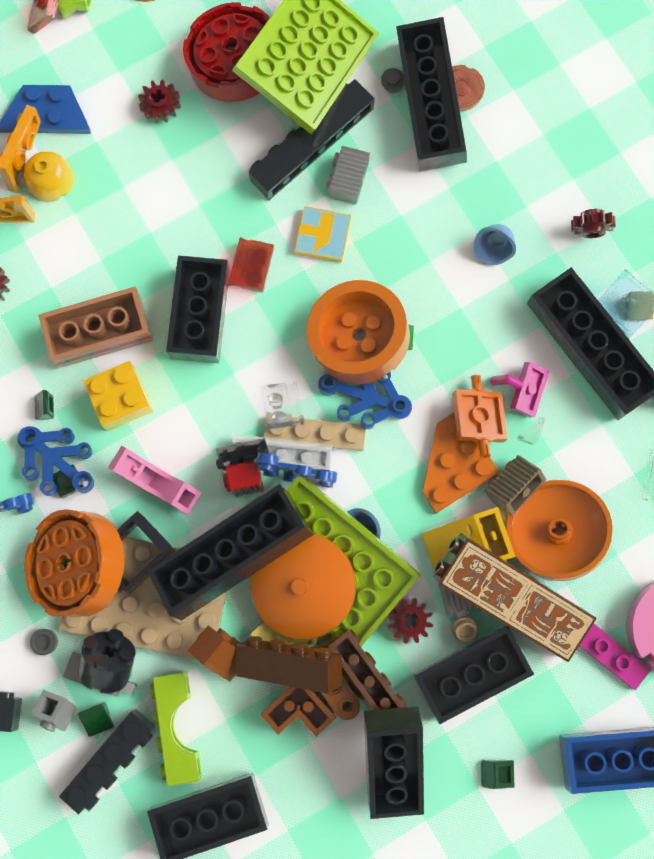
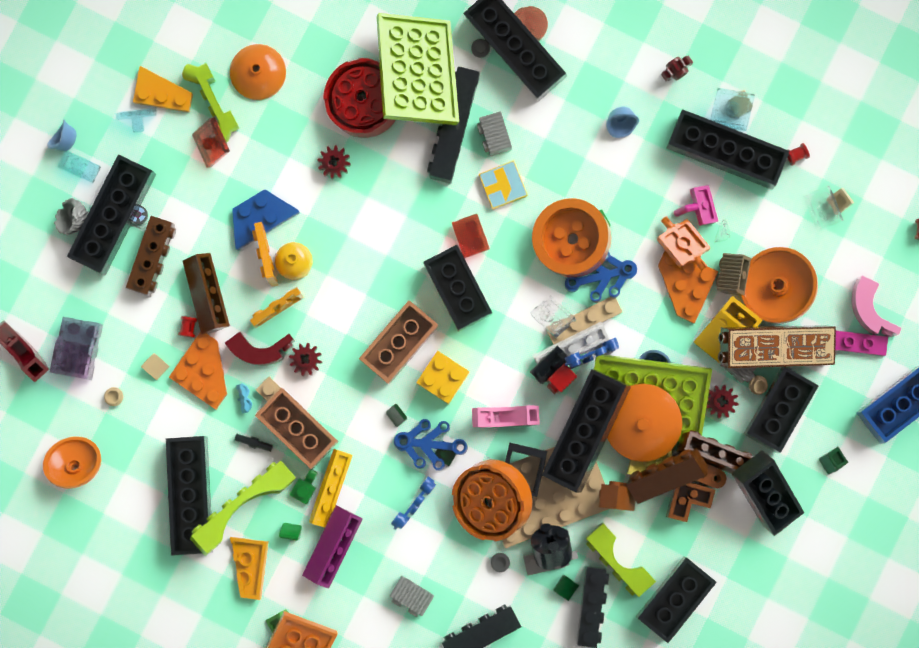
camera: 30 degrees left, 5 degrees up
(53, 711) = (538, 598): light grey brick -> none

